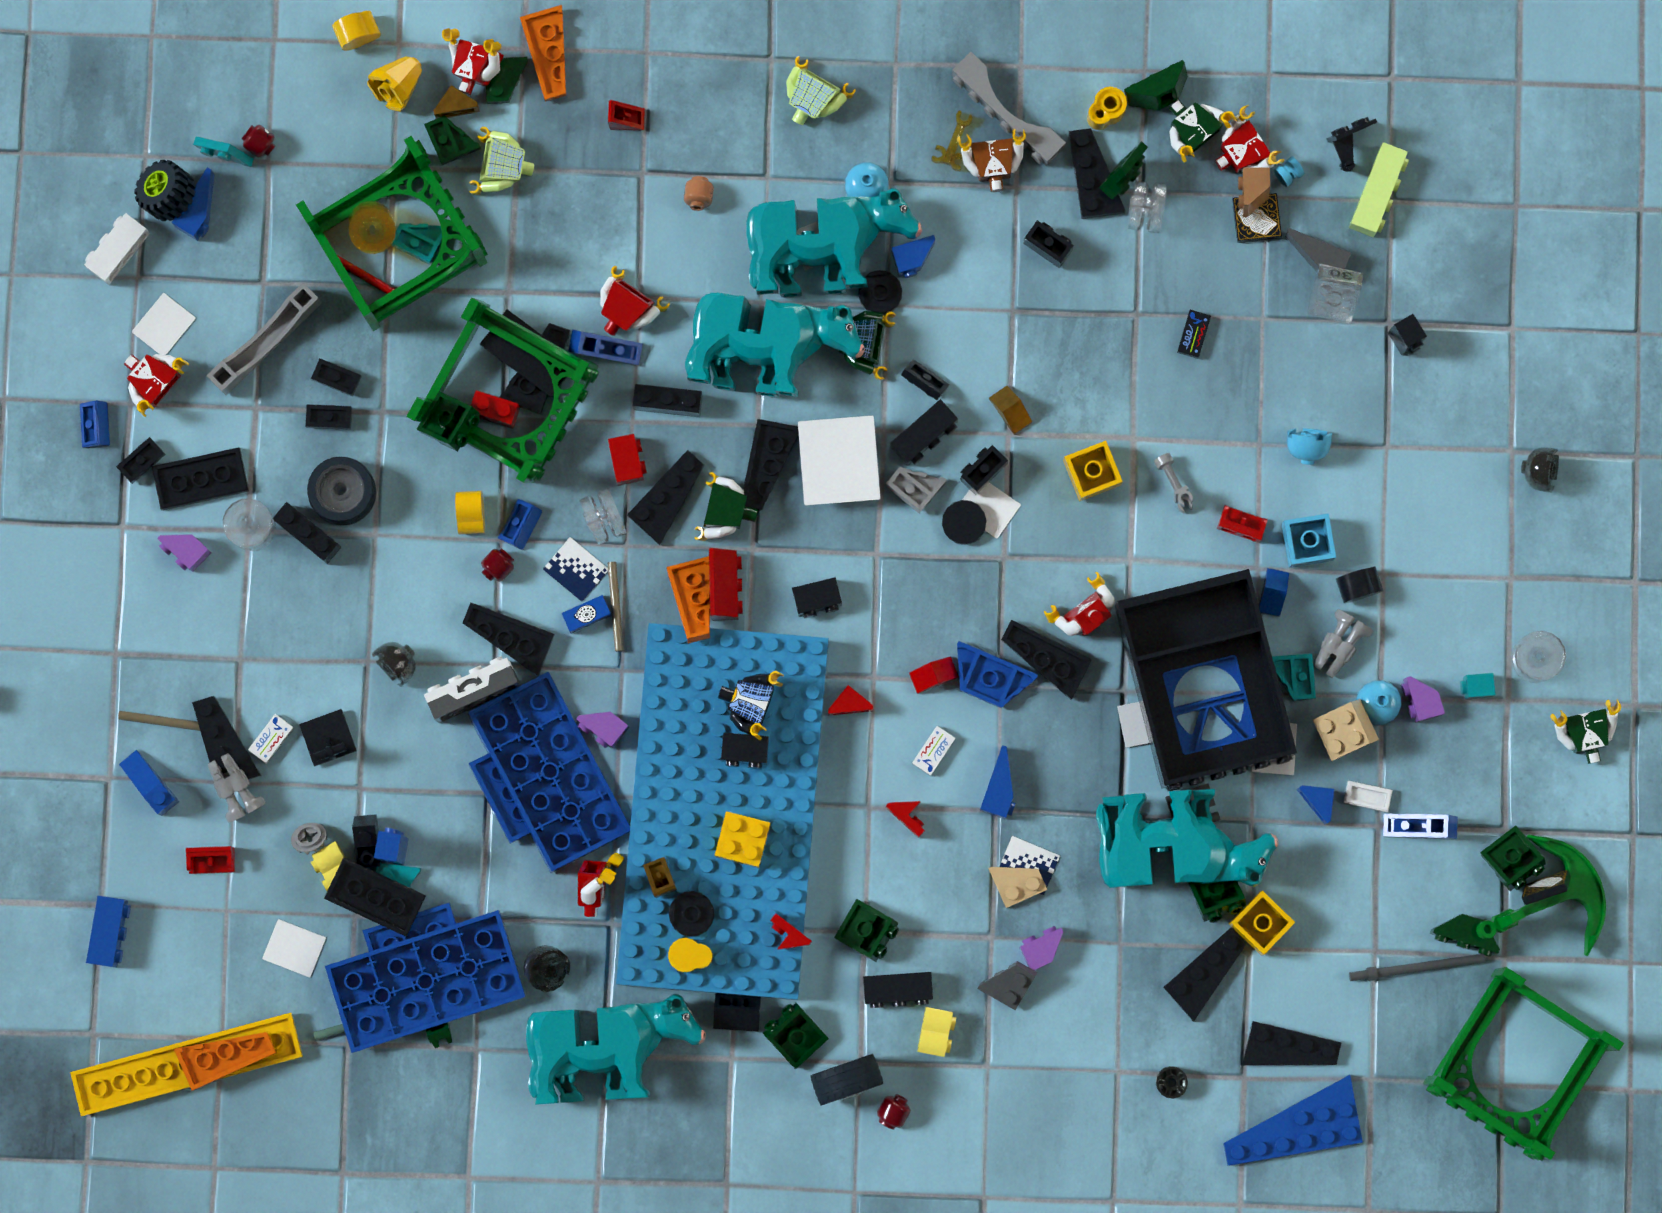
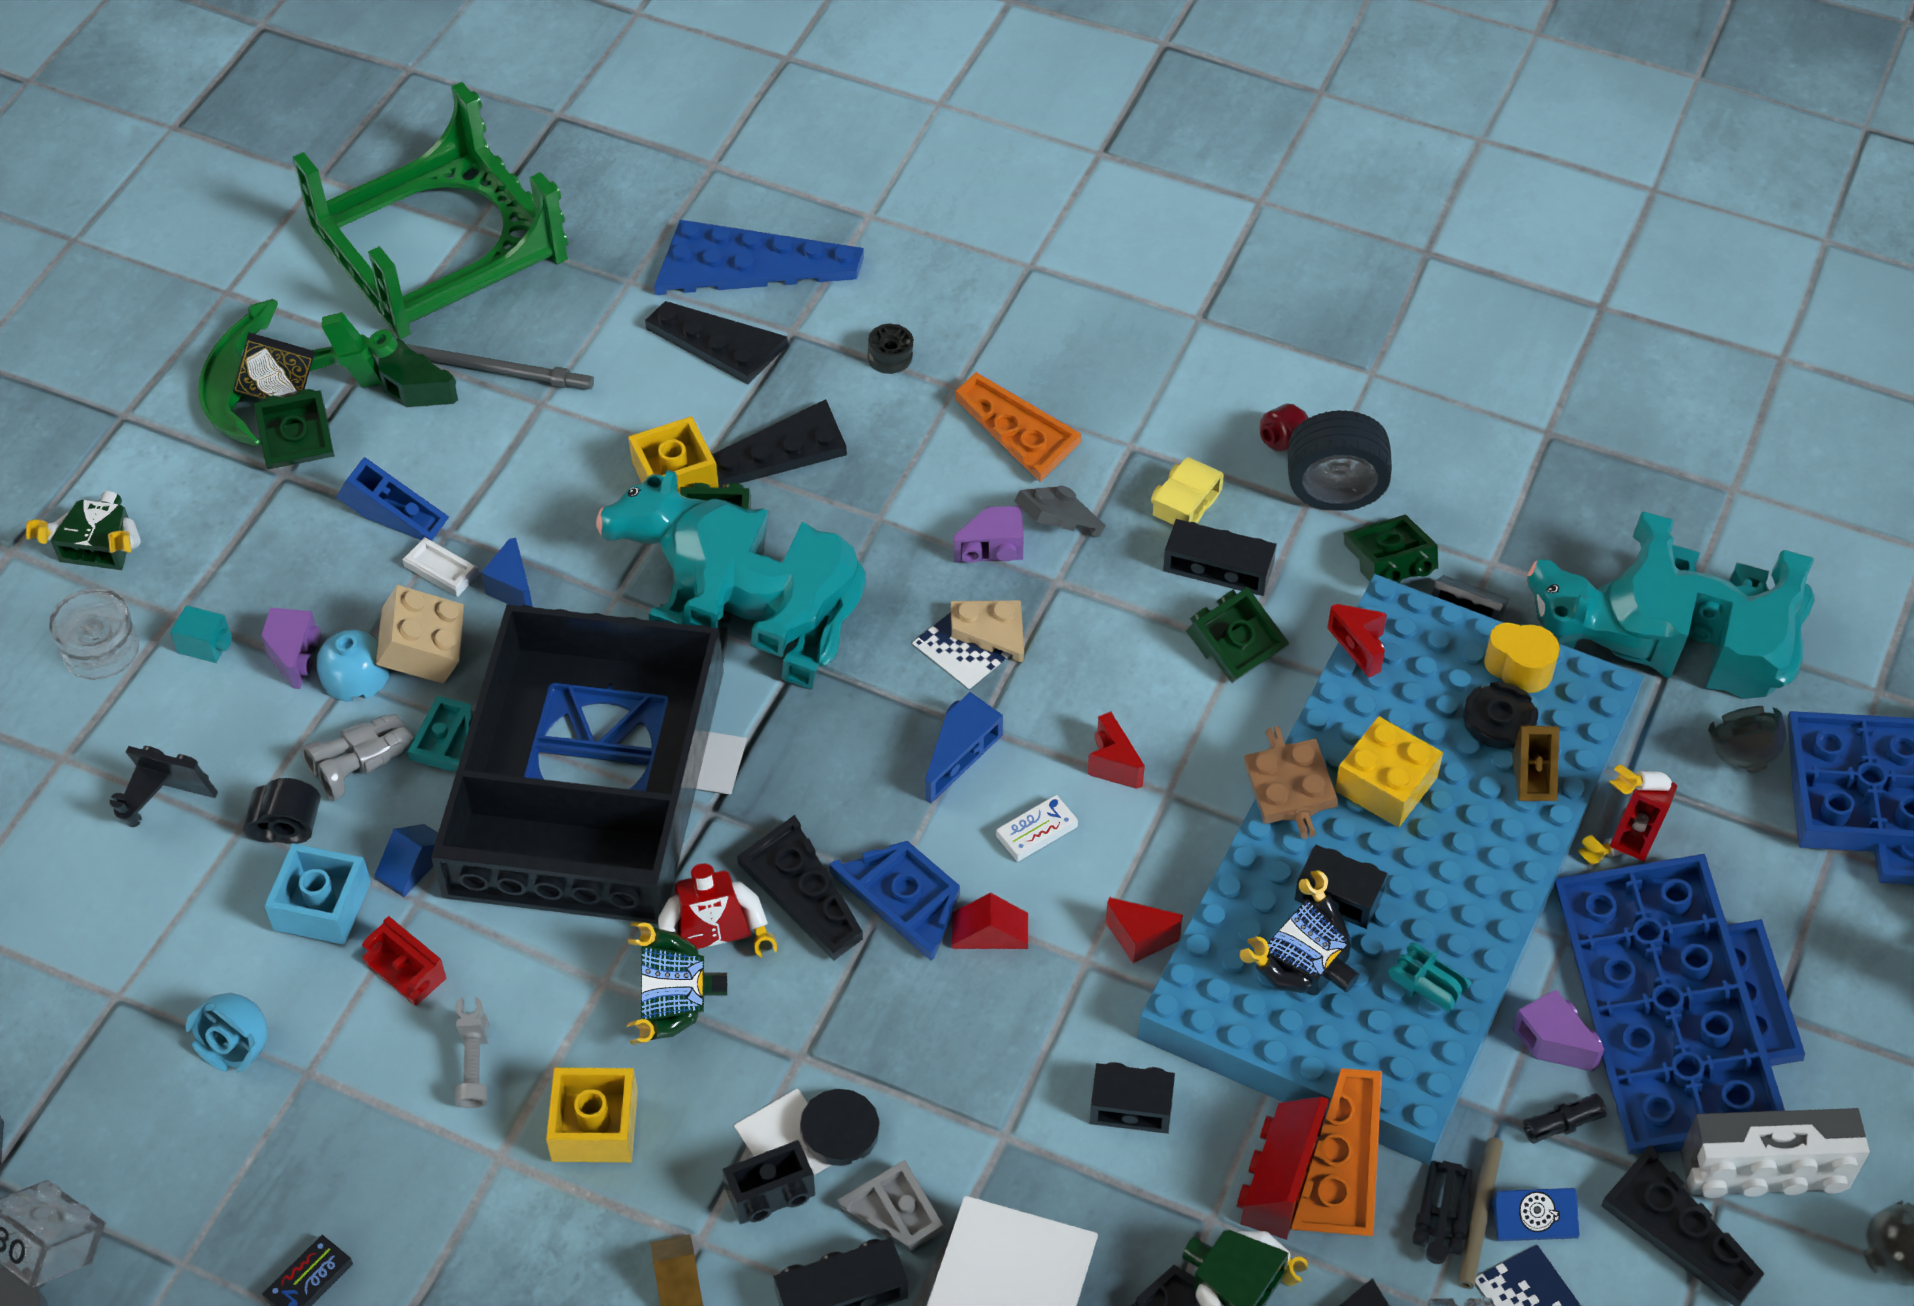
camera: 160 degrees left, 30 degrees down
(586, 677) = (1564, 1118): none -> black pin
(631, 571) = (1437, 1251): none -> black piece
(682, 713) = (1432, 980): none -> teal arm
(797, 816) = (1290, 781): none -> medium nougat plate
(1060, 1047) = (1021, 428): none -> orange wing
(1087, 559) = (671, 983): none -> torso
(1444, 576) = (151, 773): none -> black plate

